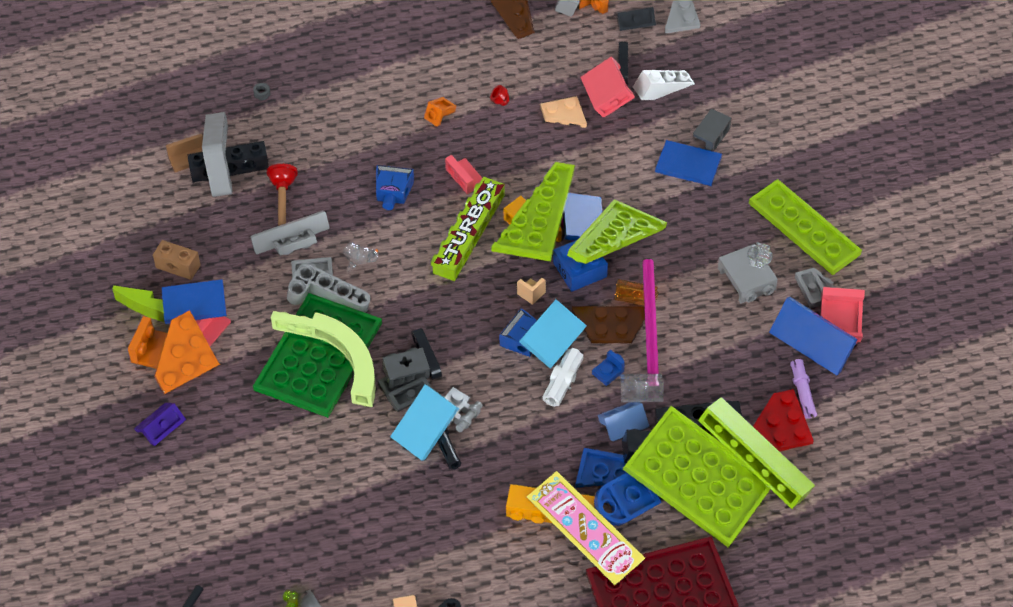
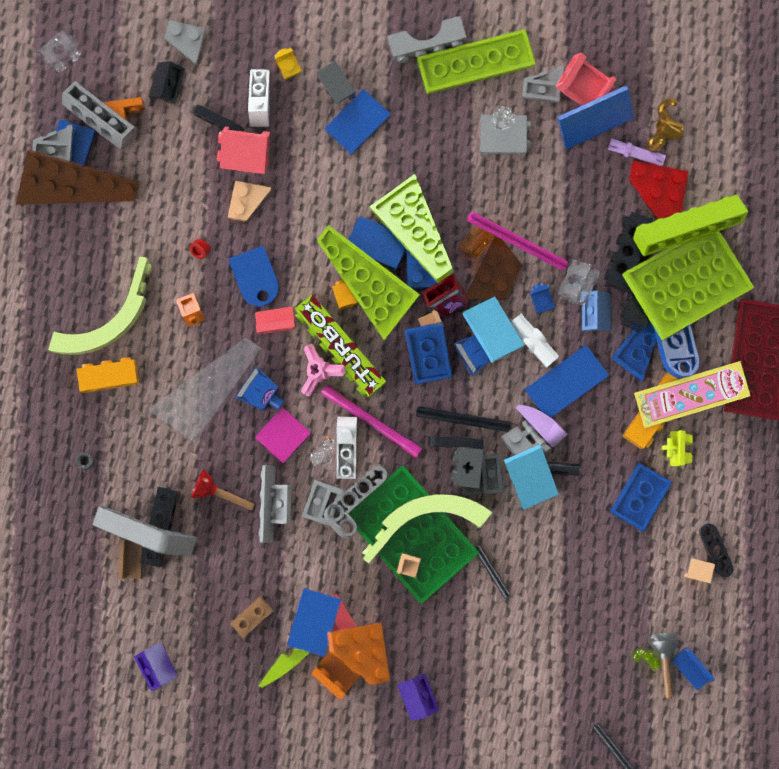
camera: 65 degrees left, 30 degrees up
(98, 211) = (156, 666): none -> dark purple panel
(285, 354) = (408, 565): none -> light nougat panel
(314, 436) = (492, 572): none -> black bar
(347, 76) = (108, 375): none -> light orange brick
(361, 220) = (282, 435): none -> dark pink slope
(367, 148) = (201, 396): none -> clear wing
(379, 268) = (346, 447): none -> white slope
(399, 66) = (114, 329): none -> yellowish green arch
(404, 315) = (337, 397): none -> dark pink piece
(435, 219) = (318, 370): none -> bright pink bush
(453, 352) = (464, 419): none -> black axle
(456, 534) = (641, 497): none -> blue tile
(482, 418) = (546, 426): none -> lavender piece
(499, 144) = (255, 275): none -> blue tile
(500, 293) = (428, 353): none -> blue tile
(533, 541) = (676, 448): none -> neon yellow hips
(537, 423) = (566, 382): none -> blue tile
(562, 281) = (446, 296): none -> dark red torso
(708, 91) = (287, 63): none -> yellow bracket
(816, 194) = (404, 46): none -> light grey arch
(843, 401) = (665, 126): none -> pearl gold piece

